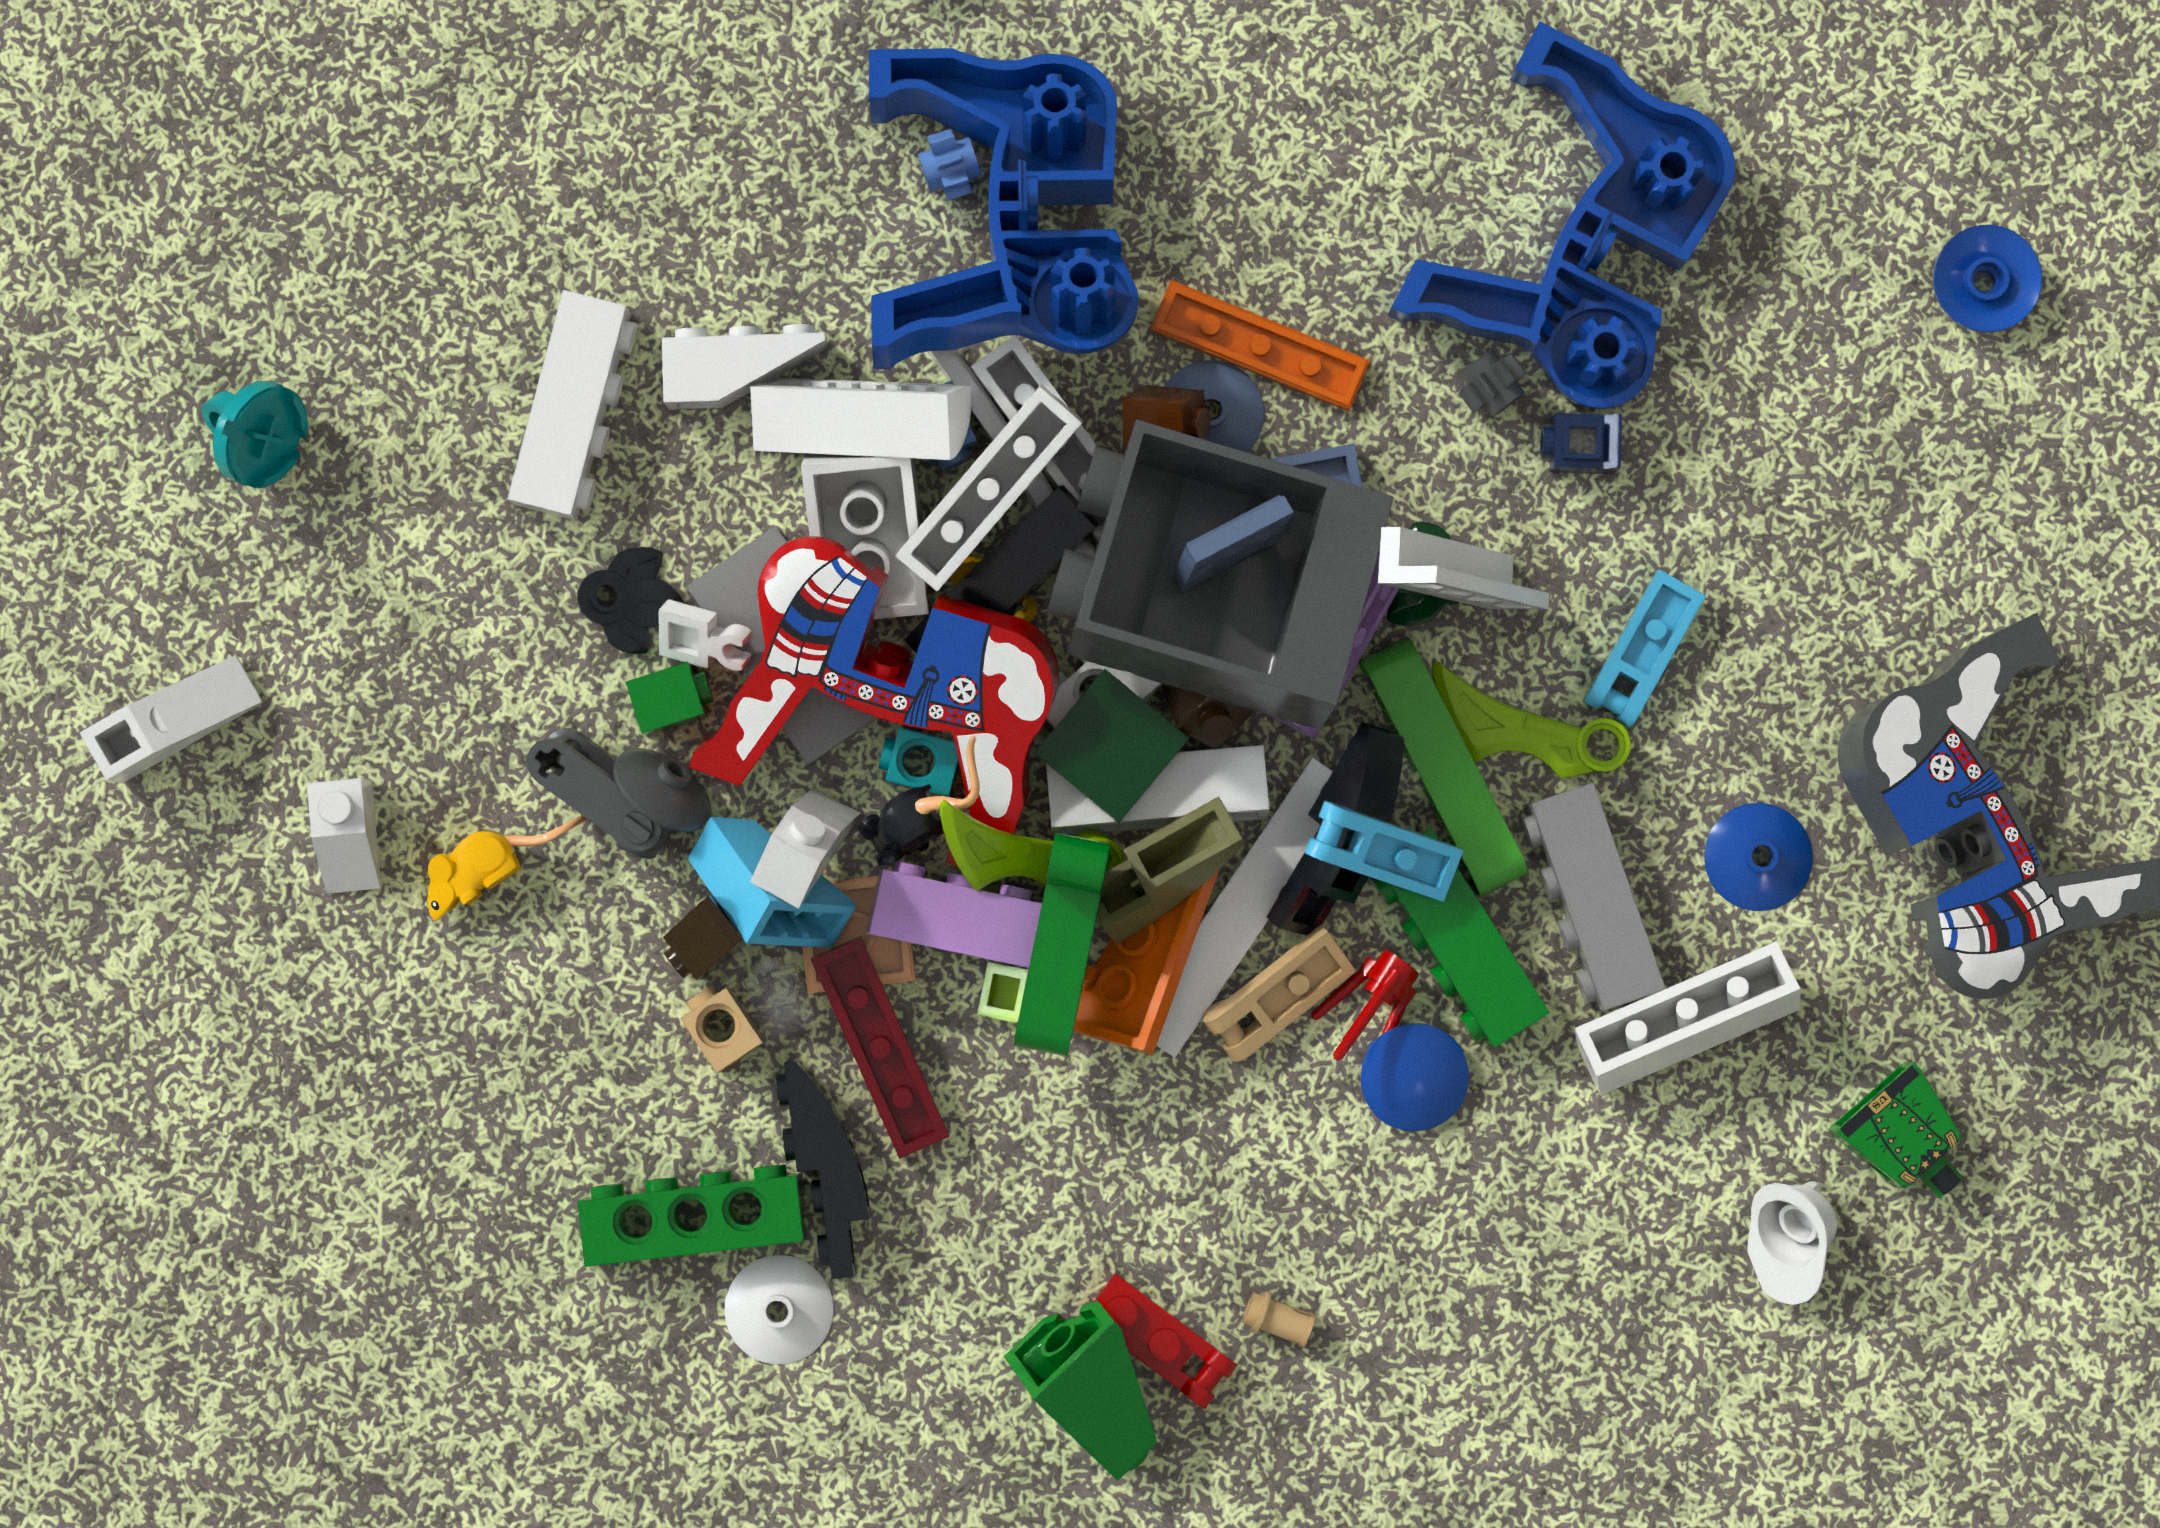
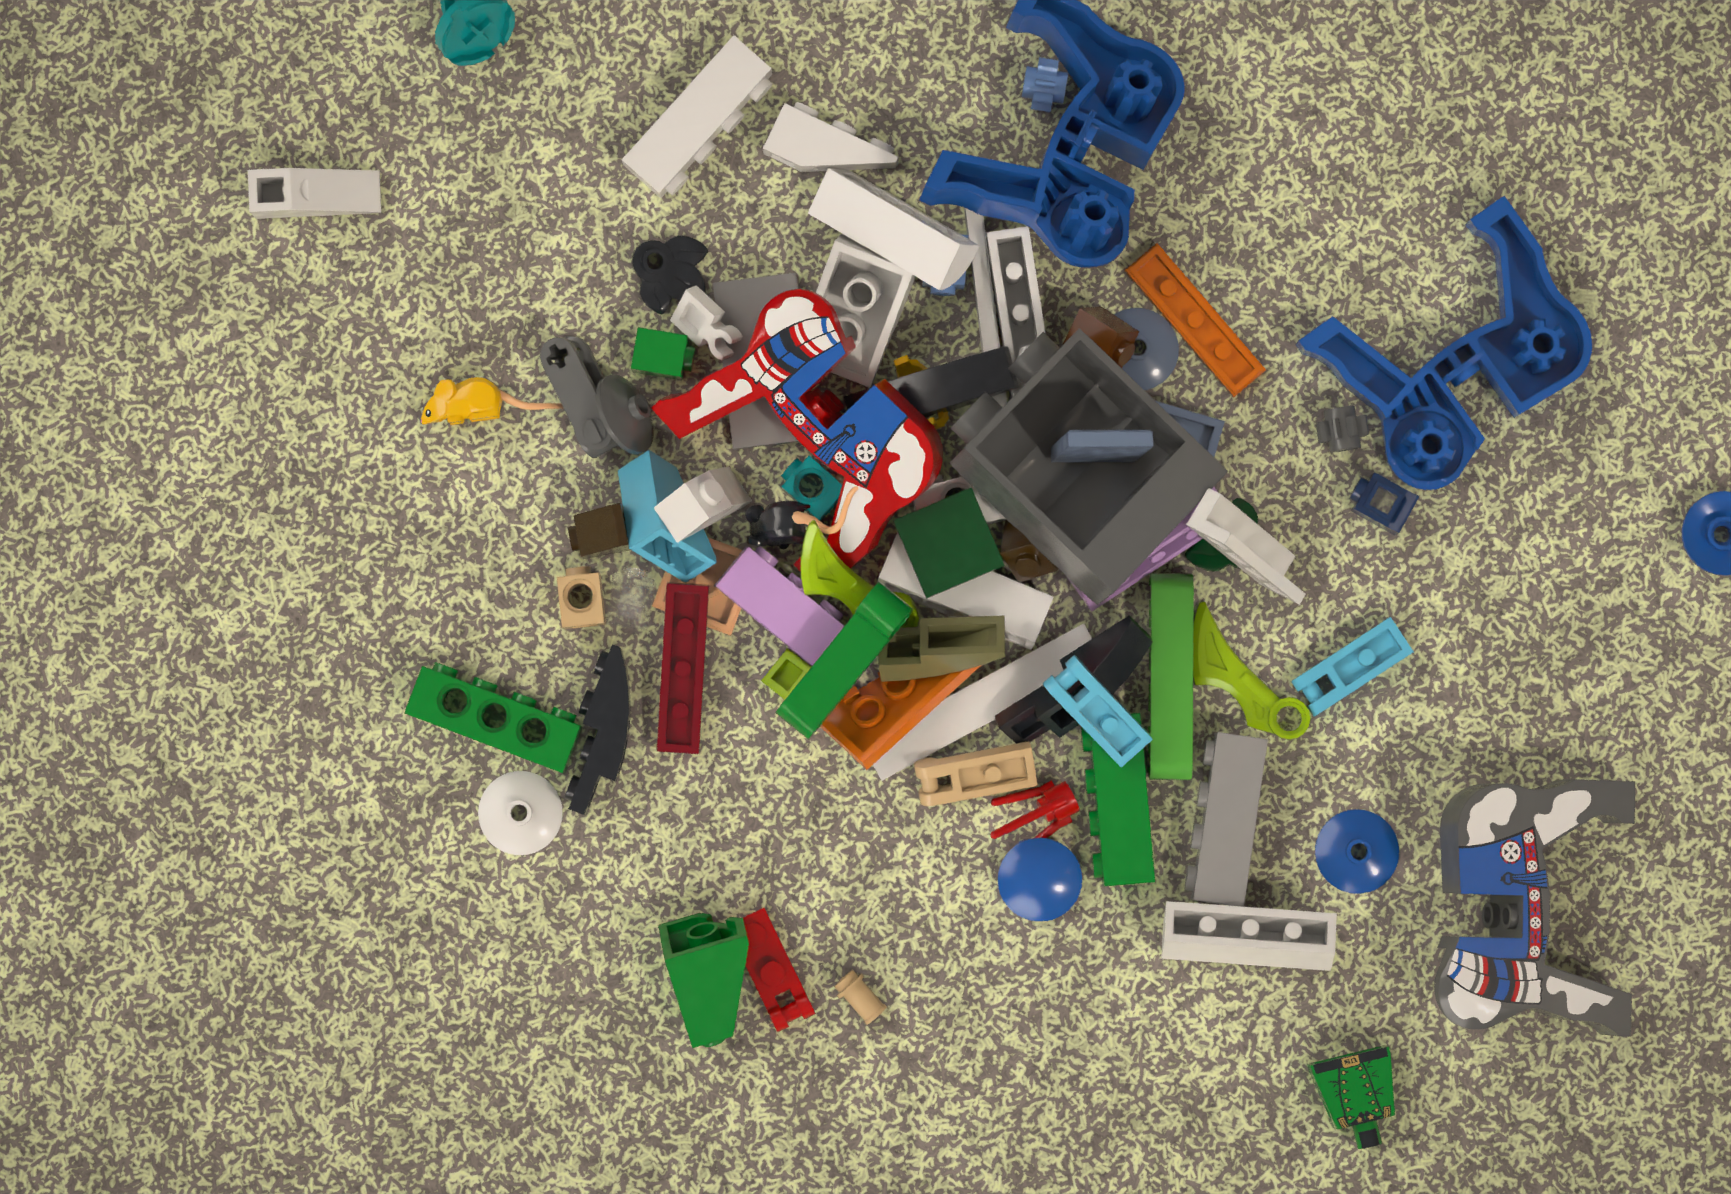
camera: 25 degrees right, 0 degrees up
(344, 834) = (391, 332): white slope -> none
(989, 487) = (956, 322): white brick -> none
(1790, 1239) = (1240, 1124): white piece -> none

